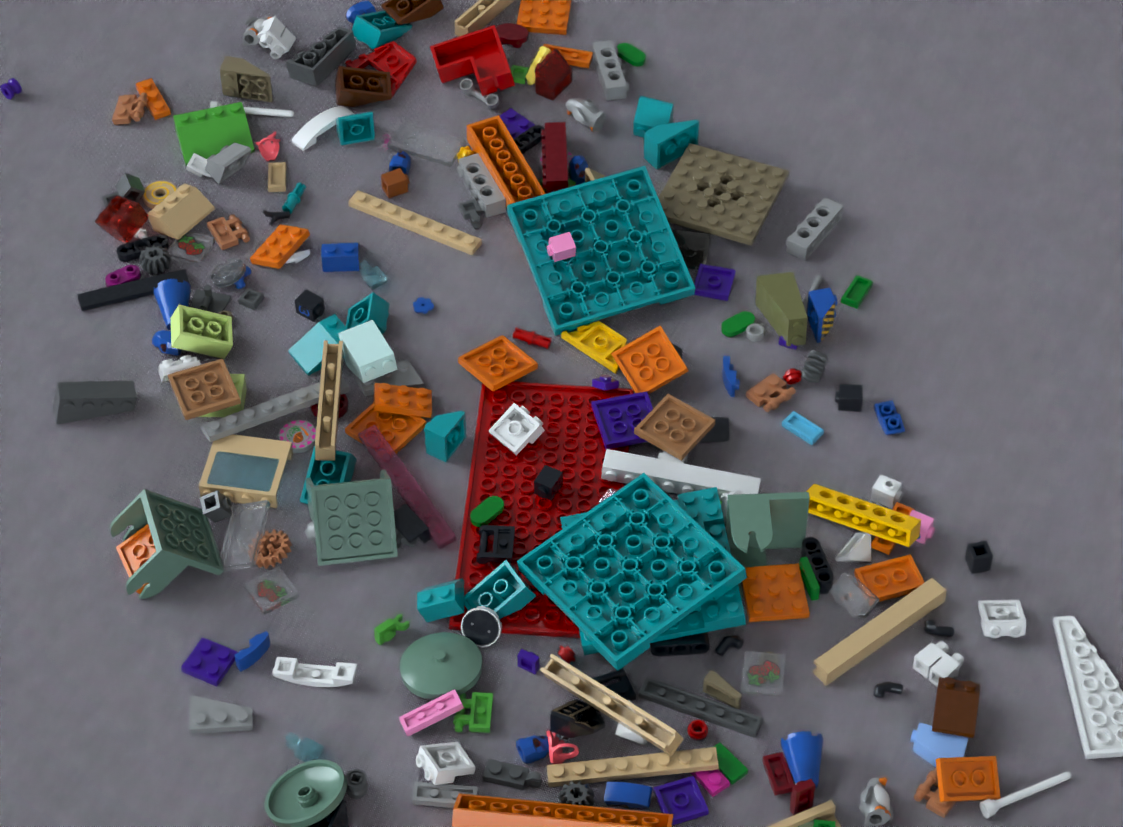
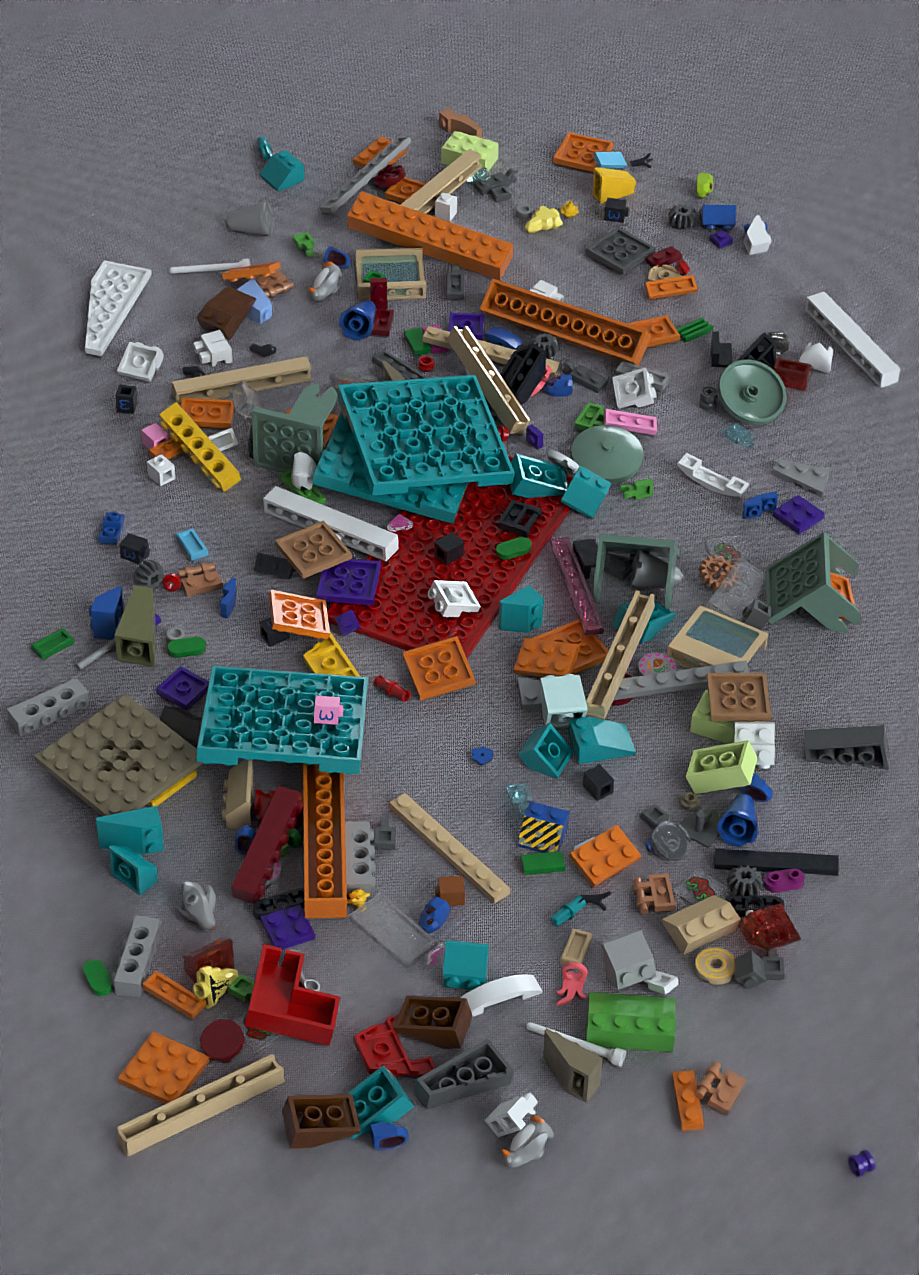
camera: 160 degrees left, 5 degrees down
(330, 232) = (543, 863): none -> green tile

